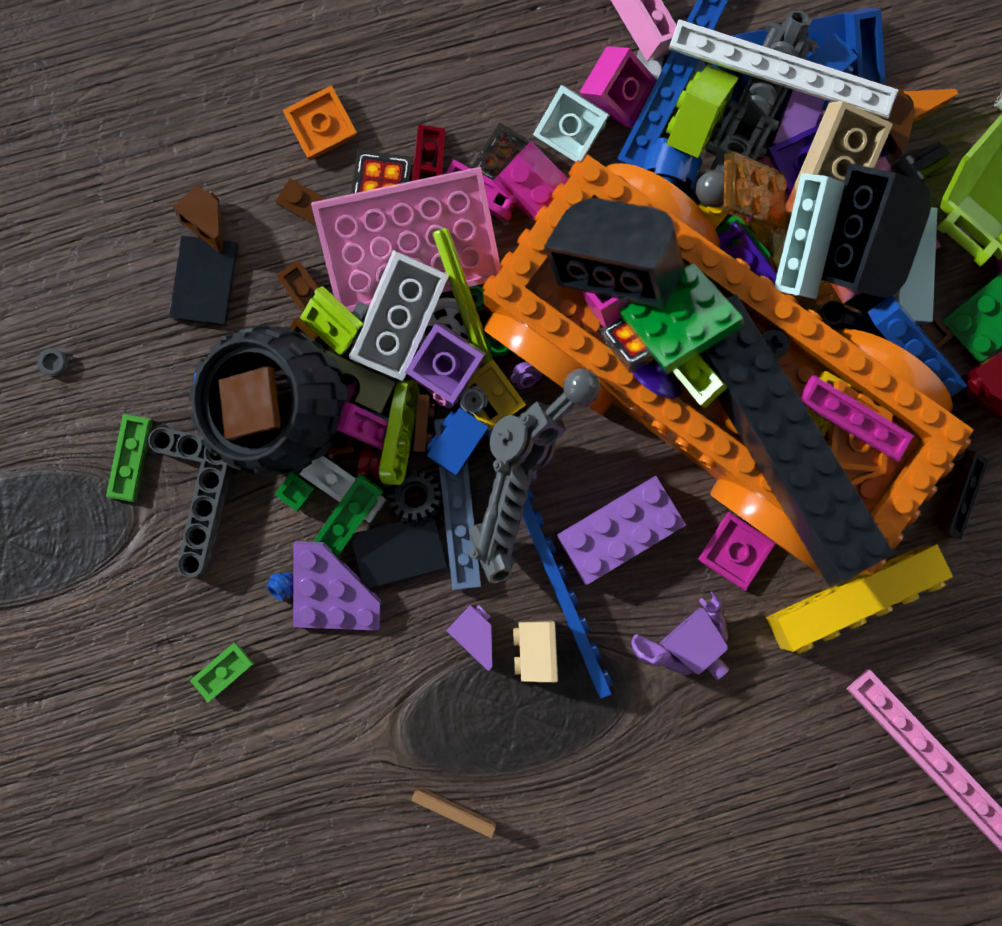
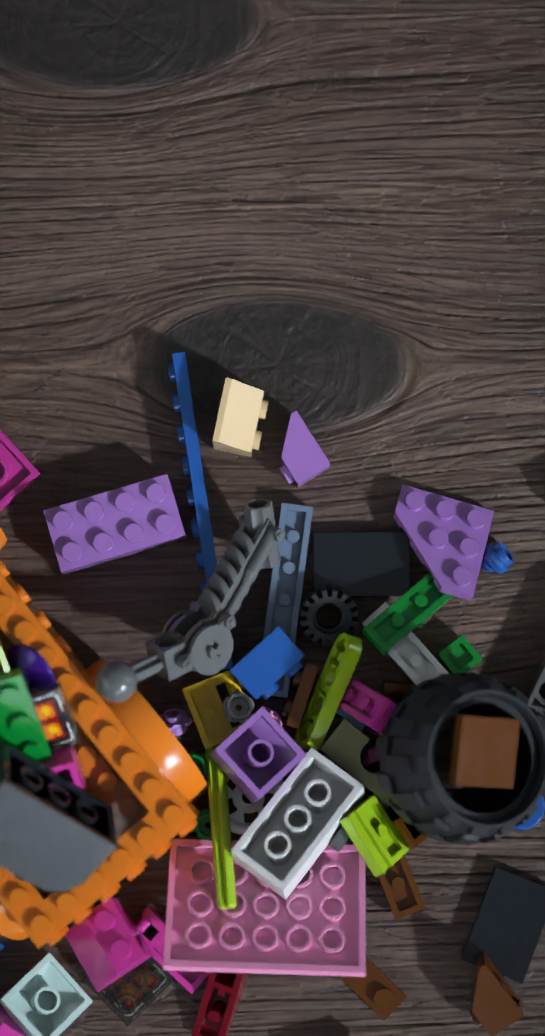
camera: 170 degrees left, 0 degrees up
(369, 463) = (369, 667): dark red wheel -> none
(380, 170) = (279, 998): tile -> none
(454, 811) = (368, 276): medium nougat tile -> none
(691, 645) = (72, 384): medium lavender torso -> none

